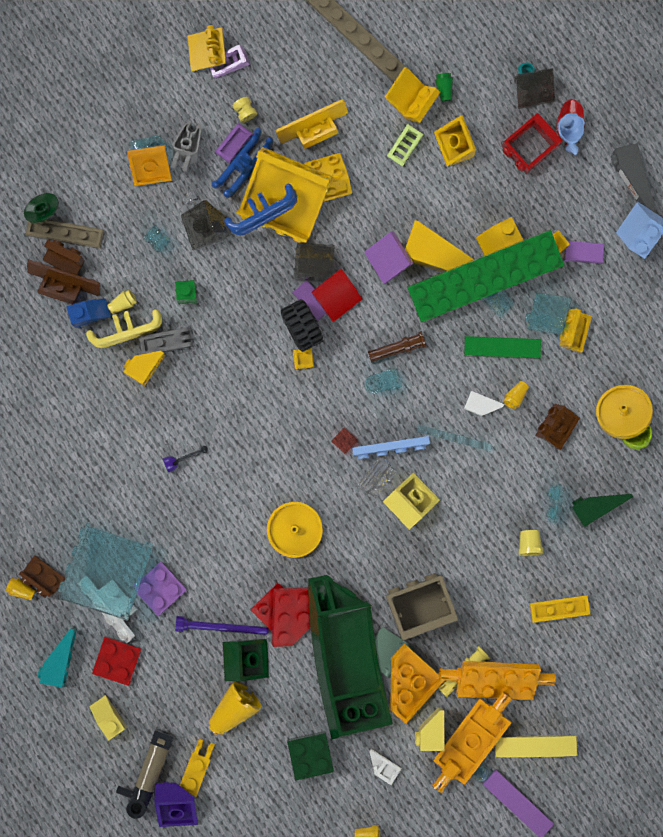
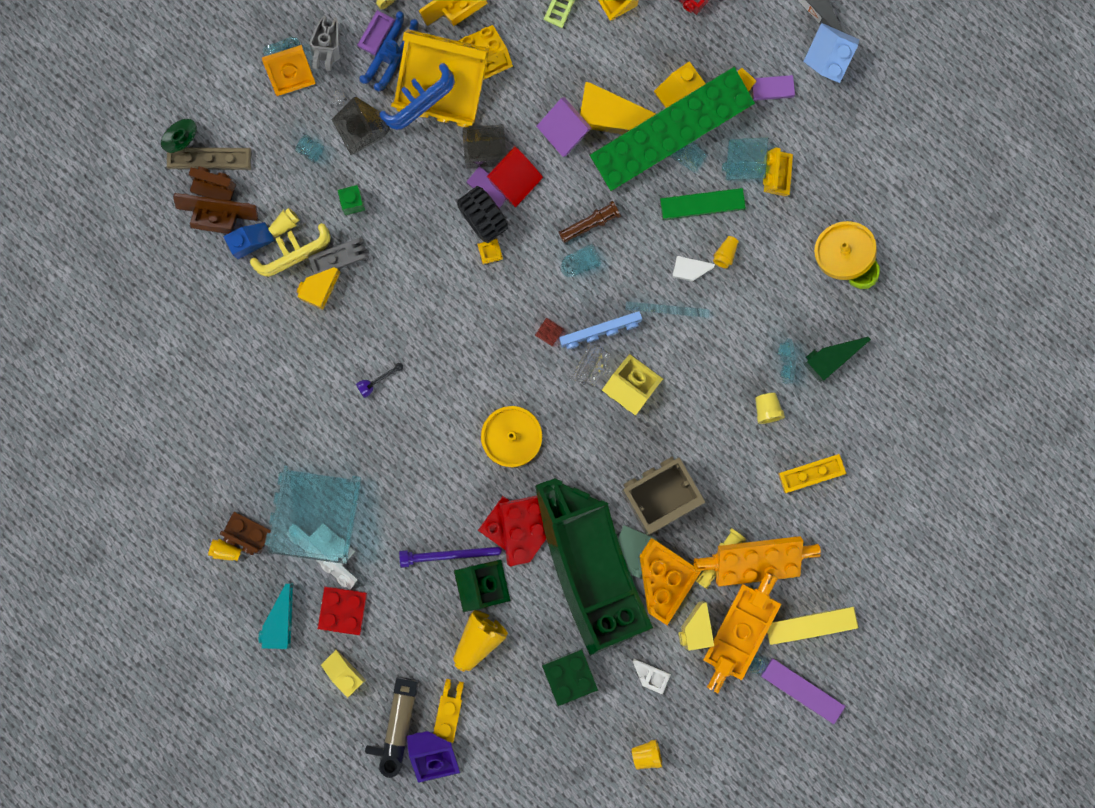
camera: 10 degrees left, 0 degrees up
(160, 588) = (376, 524): medium lavender plate -> none
(557, 426) = (776, 278): reddish brown bracket -> none

